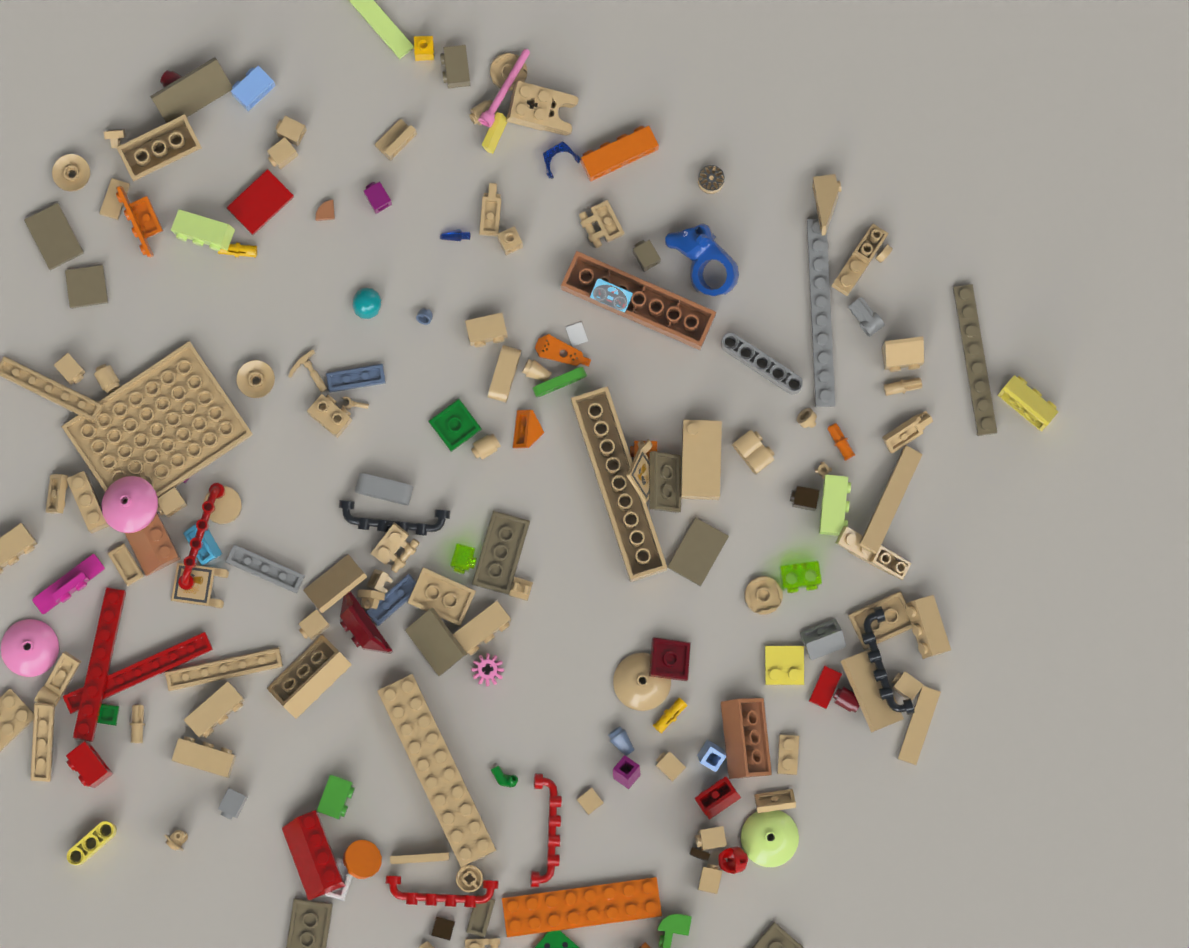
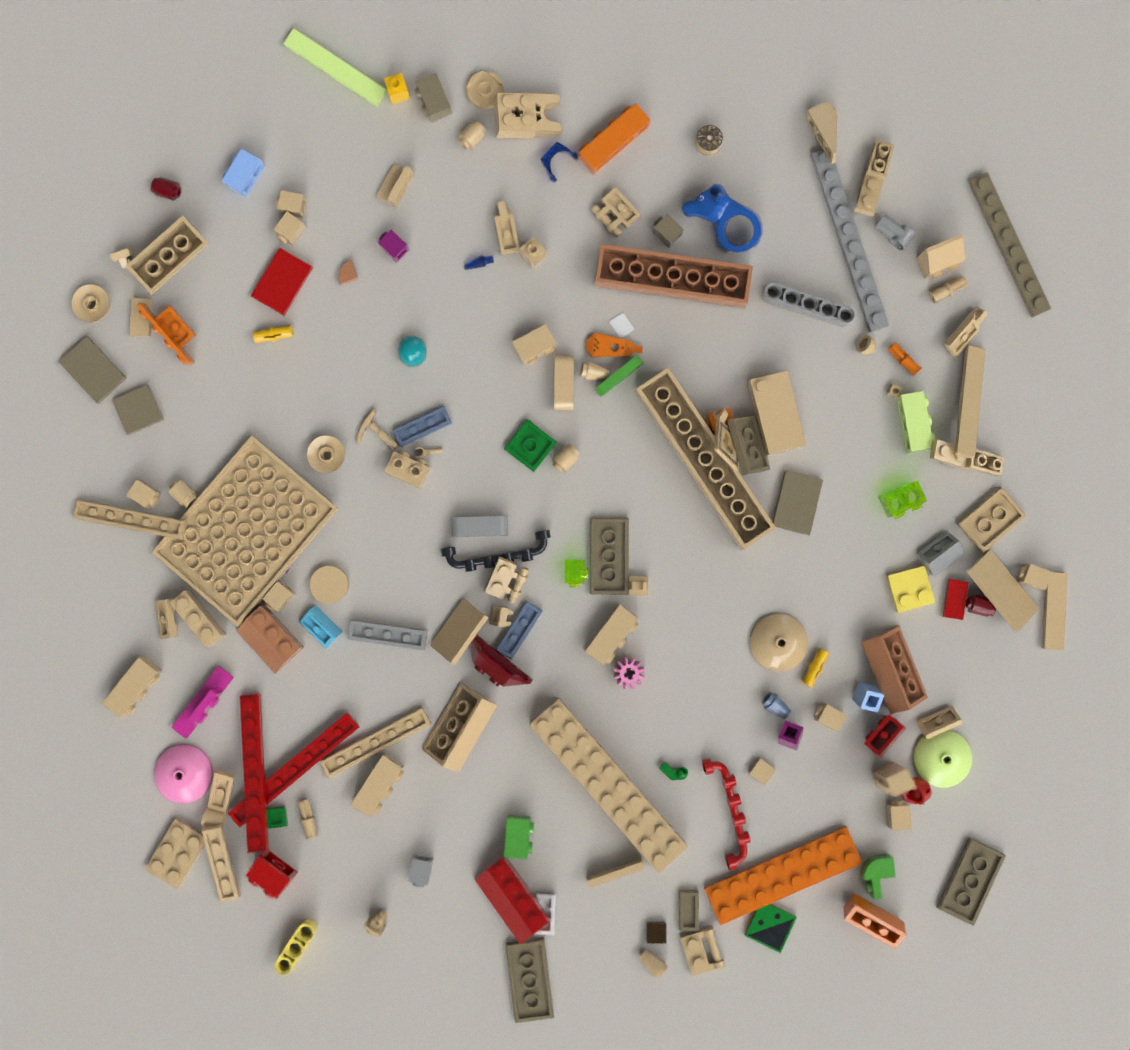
camera: 10 degrees left, 5 degrees up
(125, 564) = (252, 668): tan tile -> none
(138, 510) = (247, 614): bright pink dish -> none
(192, 91) = (184, 191): dark tan tile -> none
(202, 230) = (233, 324): yellowish green brick -> none
(202, 589) = (324, 668): tan flag -> none
(204, 757) = (380, 833): tan brick -> none
(216, 492) = (315, 668): red bar -> none
(313, 625) = (449, 677): tan brick -> none
(362, 859) = (560, 889): orange tile -> none
(370, 598) = (497, 636): tan tile -> none
(424, 316) = (471, 352): sand blue hinge -> none
(435, 642) = (572, 660): dark tan tile -> none
(444, 595) = (564, 615): tan plate -> none
(449, 899) = (638, 907): red bar -> none
(469, 878) = (669, 879): tan wheel -> none
(487, 117) = (478, 138): bright pink piece -> none
(494, 133) = (488, 152): light yellow tile -> none
(526, 429) = (600, 430): orange slope -> none
(611, 295) = (647, 277): slope -> none
(669, 659) = (800, 614): dark red tile -> none
(699, 854) = (878, 794): dark brown tile -> none
(753, 451) = (824, 392): tan brick -> none
(763, 595) = (871, 527): tan tile -> none
(788, 754) = (938, 674): tan plate -> none
(804, 498) = (886, 423): dark brown brick -> none
(875, 657) = (1008, 572): black bar -> none
(884, 253) = (895, 165): tan tile -> none
(928, 627) = (1039, 514): tan brick -> none
(1028, 402) = (1074, 272): light yellow slope -> none

